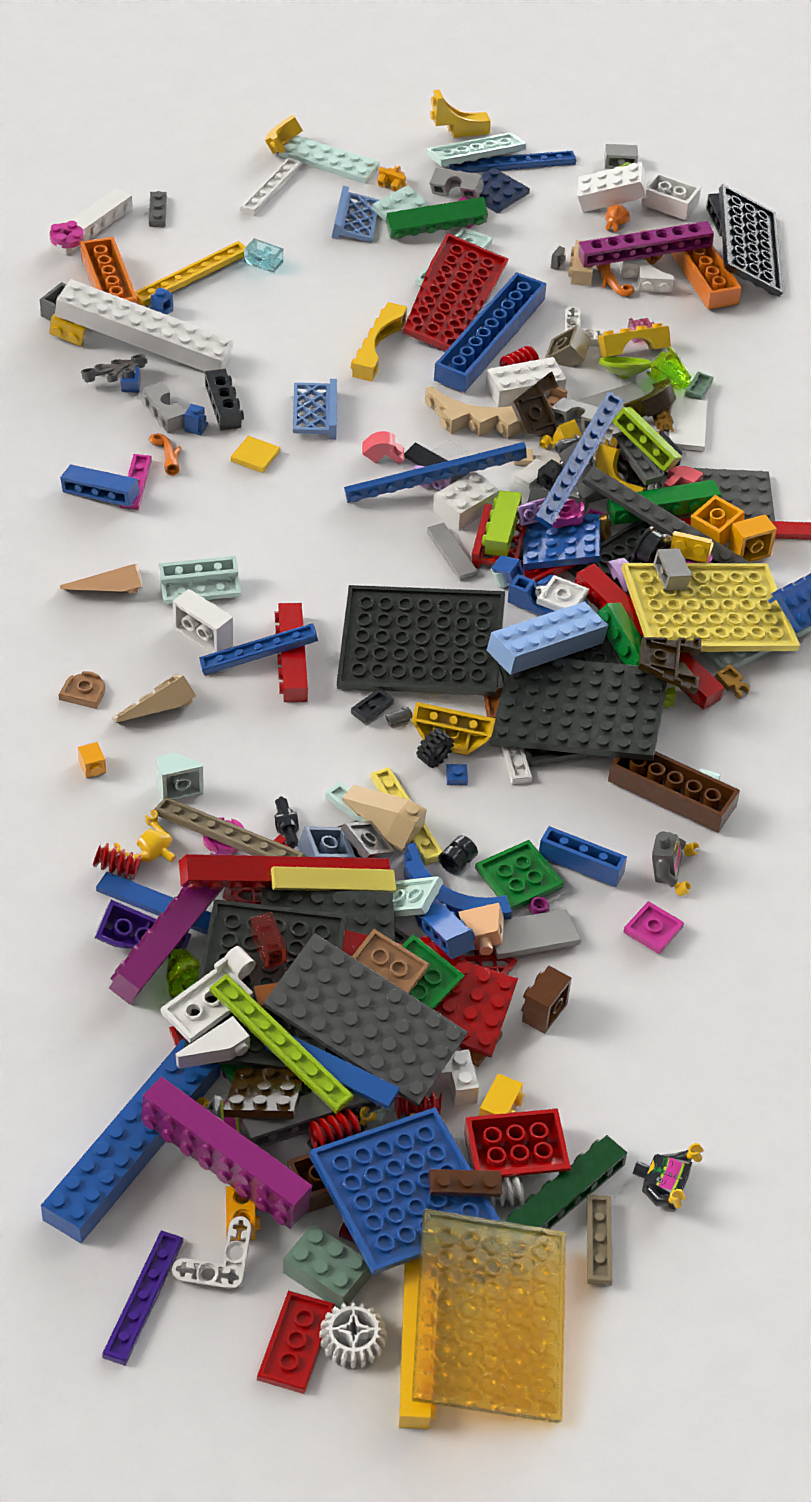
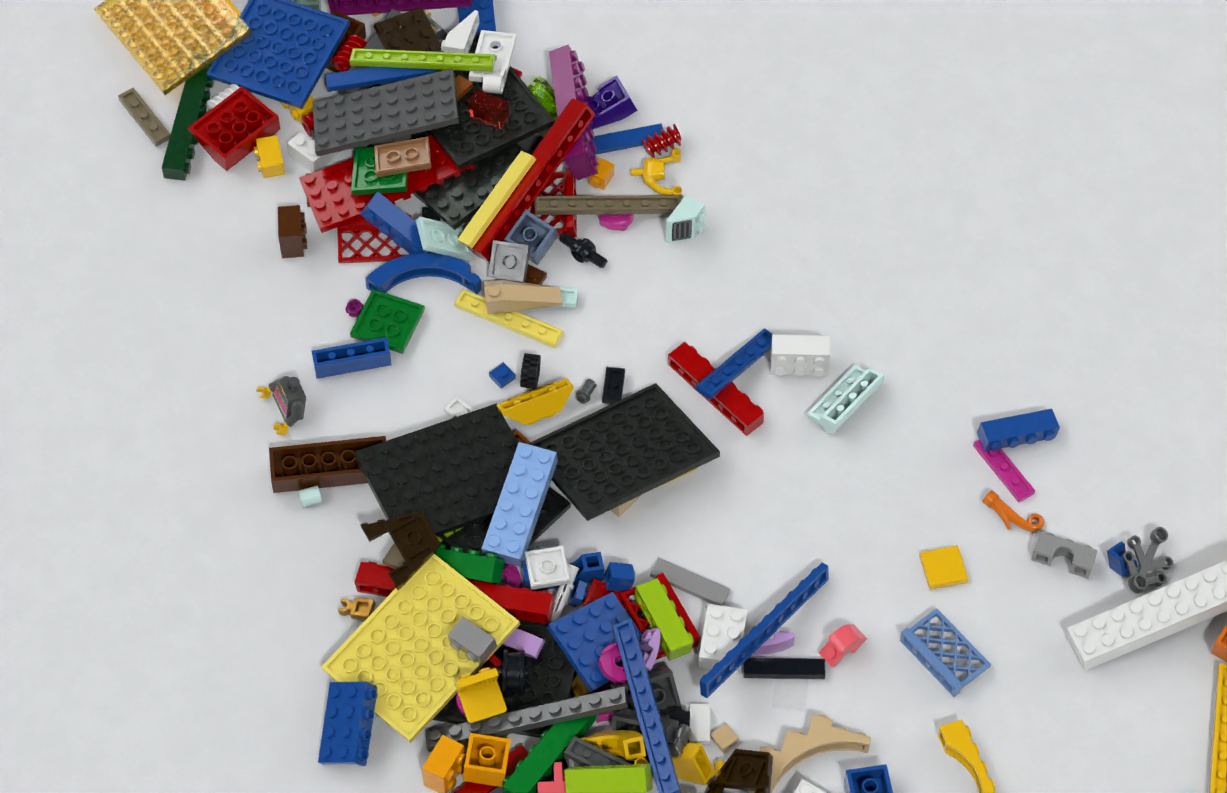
camera: 145 degrees right, 10 degrees up
(83, 689) = (830, 258): medium nougat tile -> none
(91, 759) = (761, 203): light orange brick -> none
(120, 580) = (912, 354): light nougat wedge -> none
(161, 299) = (1202, 674): blue brick -> none
(167, 695) = (766, 282): tan wedge -> none
(195, 419) = (1024, 559): blue brick -> none
(223, 399) = (1024, 591): black brick -> none
(458, 854) = (441, 303): black wheel -> none
(465, 1183) = (243, 72): reddish brown plate -> none
(487, 926) = (374, 250): light nougat torso -> none
(537, 934) = (341, 284): light grey tile -> none
(653, 927) = (261, 345): dark pink plate -> none
(668, 1176) = (126, 173): torso -> none

